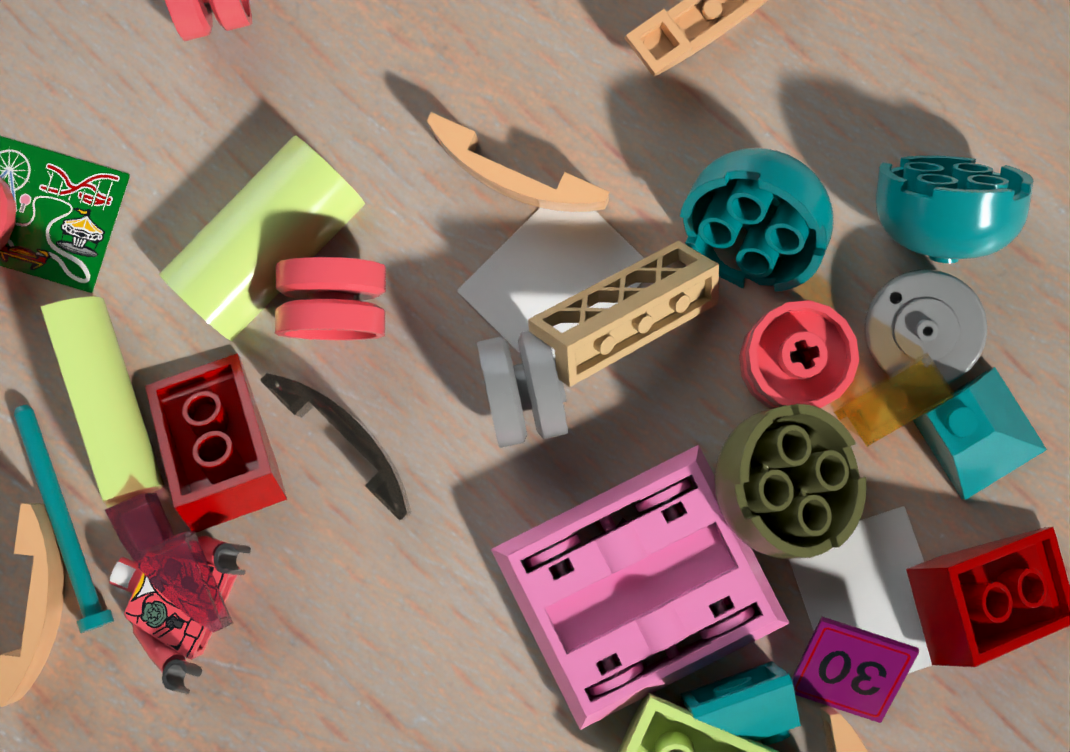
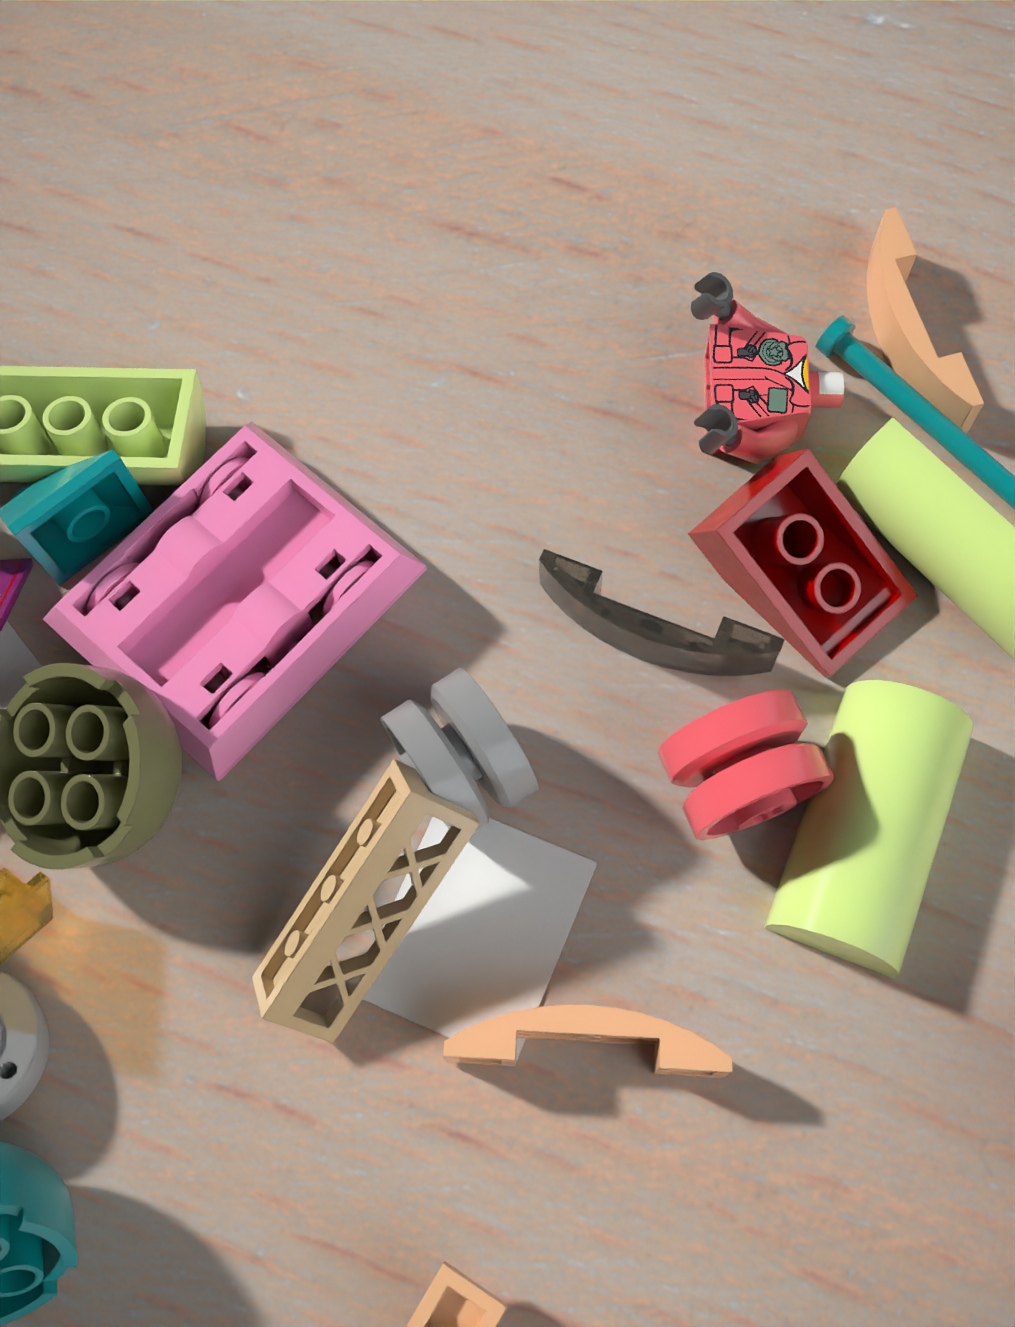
camera: 165 degrees right, 15 degrees down
(169, 560) = (783, 396): clear pink slope -> none
(775, 202) = (207, 1131): teal cylinder -> none
(819, 336) = (80, 930): coral wheel -> none

